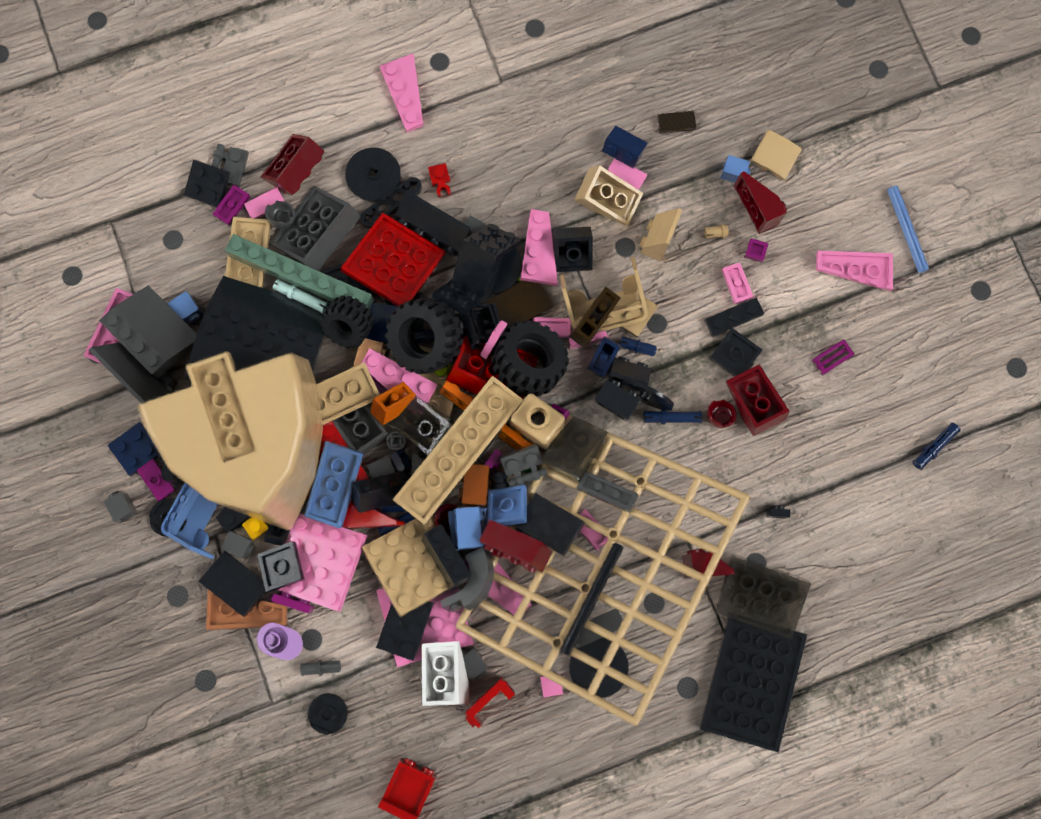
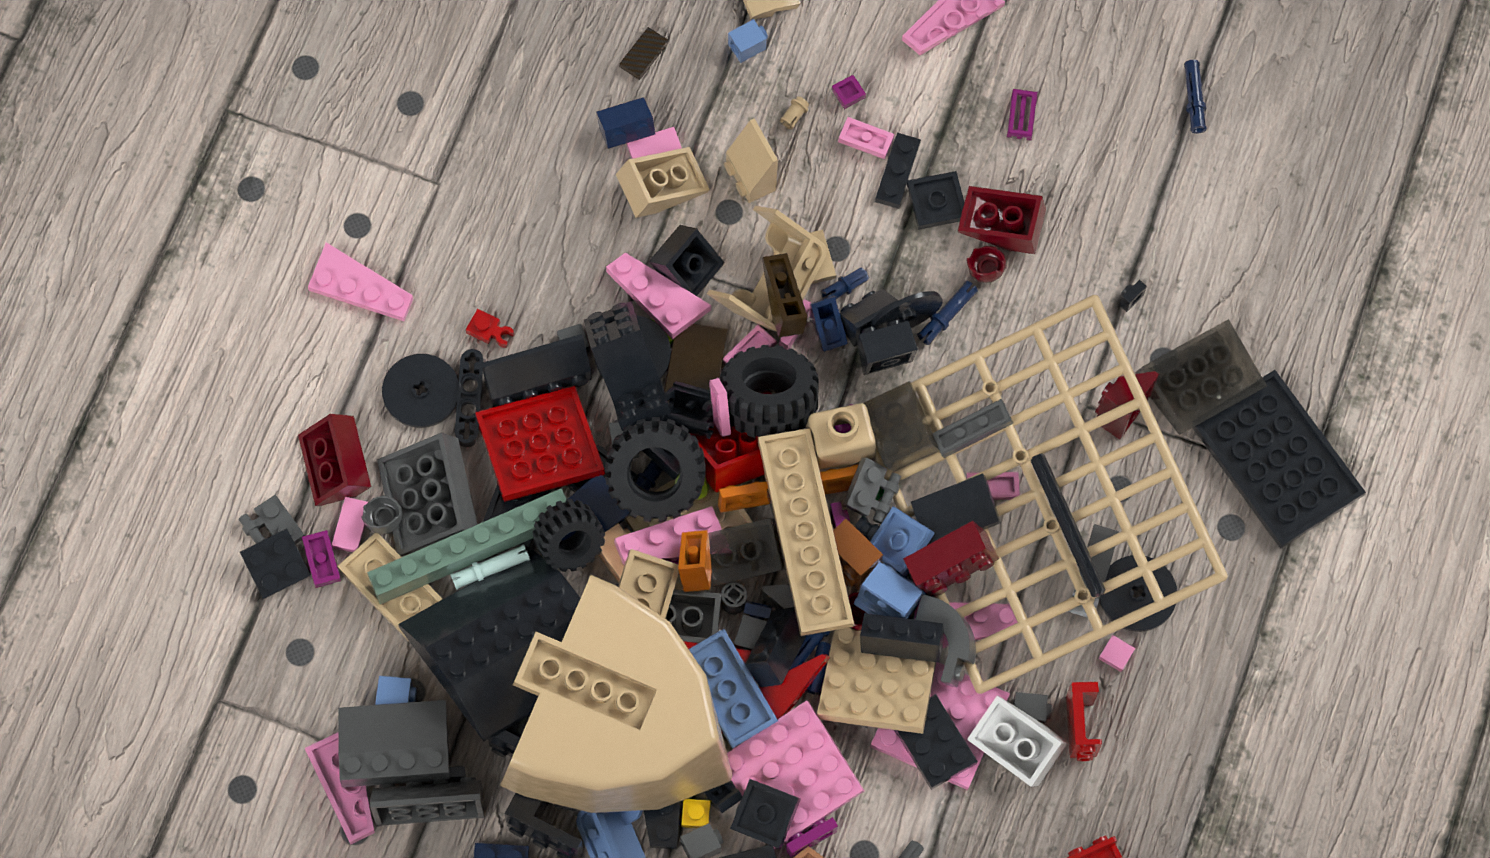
camera: 50 degrees left, 10 degrees down
(760, 202) = (804, 46): dark red slope -> none

